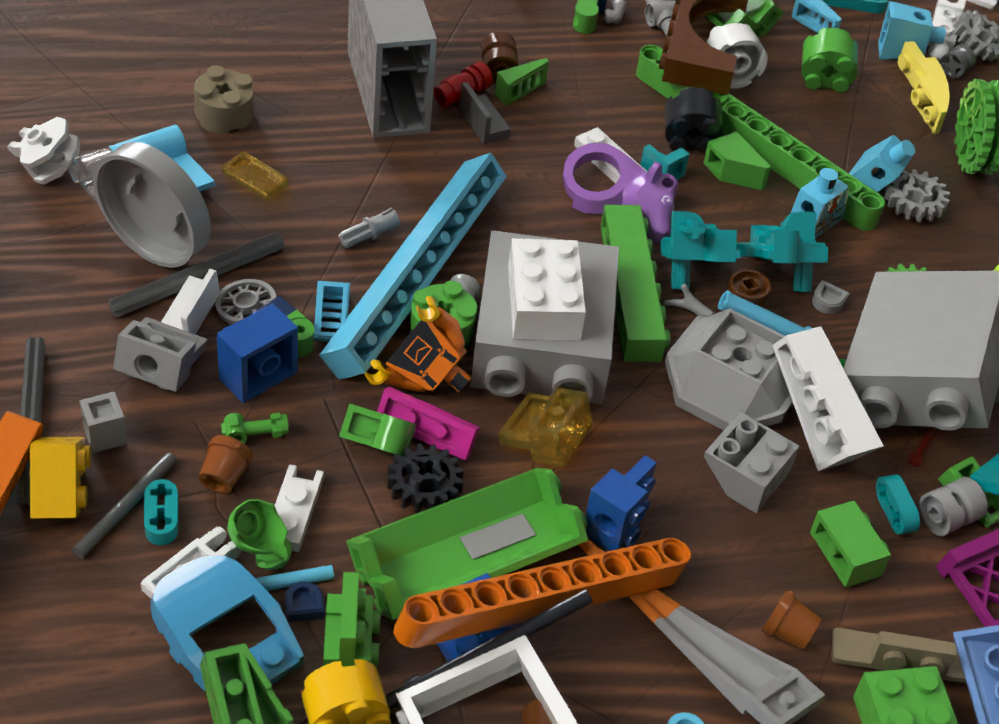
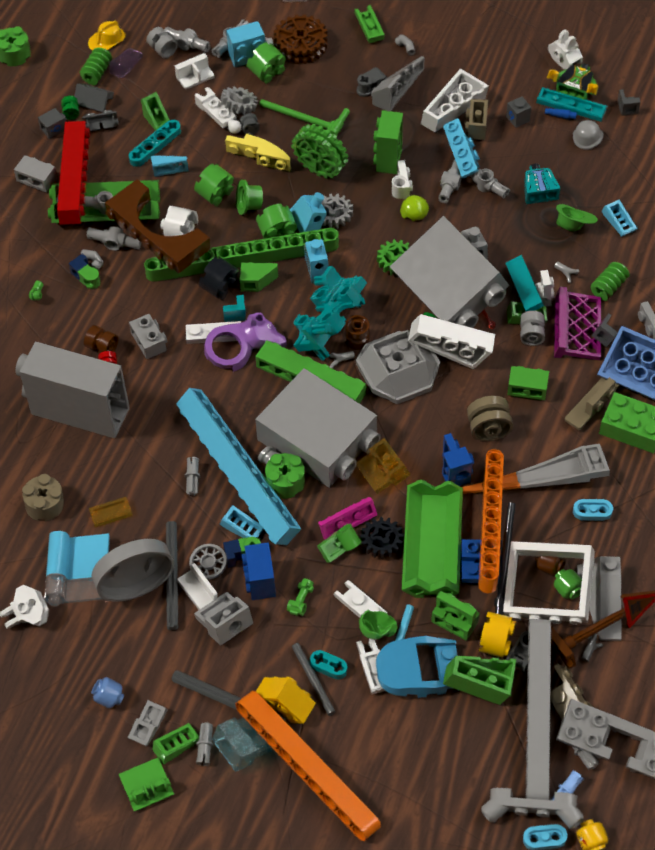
camera: 50 degrees left, 10 degrees up
(103, 422) = (260, 663): light grey brick -> none
(224, 463) = (320, 622): dark orange piece -> none
(304, 602) = (420, 626): dark blue tile -> none
(426, 354) = (310, 495): torso -> none
(482, 116) = (140, 375): dark grey panel -> none
(497, 536) = (432, 525): light grey sticker -> none
(515, 81) = (124, 346): bright green slope -> none
(546, 98) = (148, 336): none -> light grey brick
(546, 289) = (321, 417): white brick -> none
(737, 515) = (489, 418): none -> dark tan wheel
(750, 461) = (457, 391): light grey slope -> none
(759, 314) = (392, 324): medium azure pin -> none
(792, 621) = (552, 432): dark orange piece -> none
(829, 298) = (373, 295): light grey tile -> none
(835, 137) = (276, 221): none -> bright green brick
(845, 100) = (248, 197): none -> bright green piece
(897, 504) = (516, 349): teal beam -> none
(907, 24) = (215, 133): medium azure torso -> none

